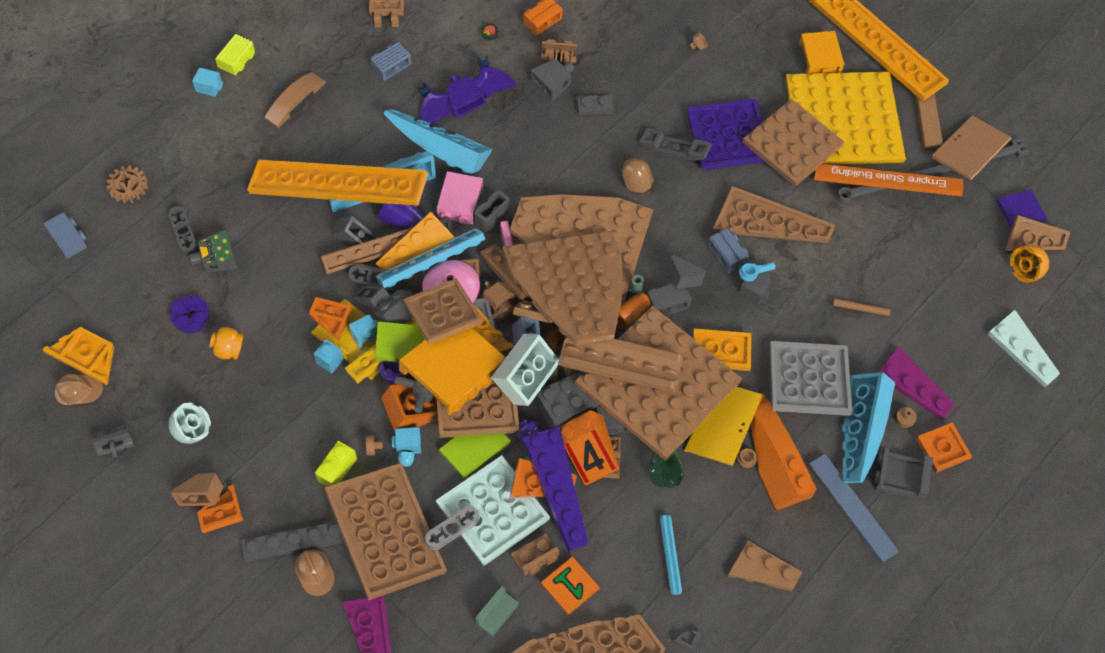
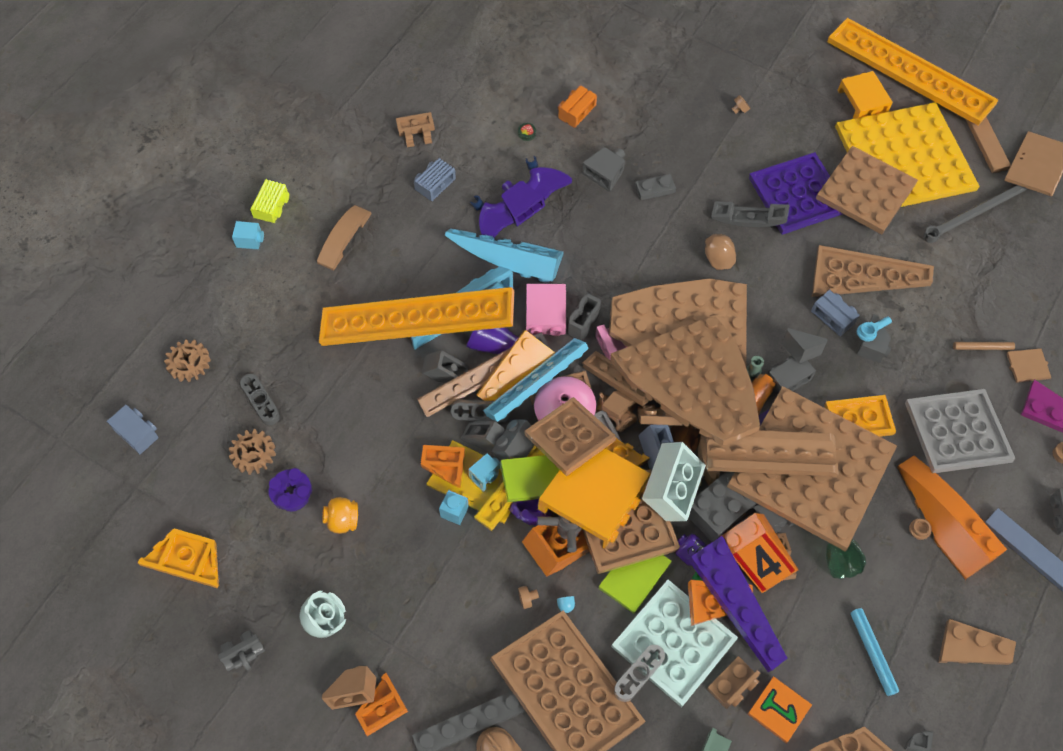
camera: 10 degrees left, 0 degrees up
(77, 389) = (186, 600): medium nougat piece -> none
(164, 273) = (256, 457): none -> medium nougat gear
(215, 253) = (302, 418): dark grey torso -> none
(336, 464) = (494, 628): neon yellow brick -> none
(407, 440) = (563, 584): medium azure brick -> none
(567, 48) = (599, 135): medium nougat hinge -> none
(722, 431) = (891, 508): yellow container -> none
(866, 426) = (1031, 470): medium azure wedge -> none
(889, 179) = (973, 210): orange tile -> none
(899, 333) = (1028, 365): none -> medium nougat piece

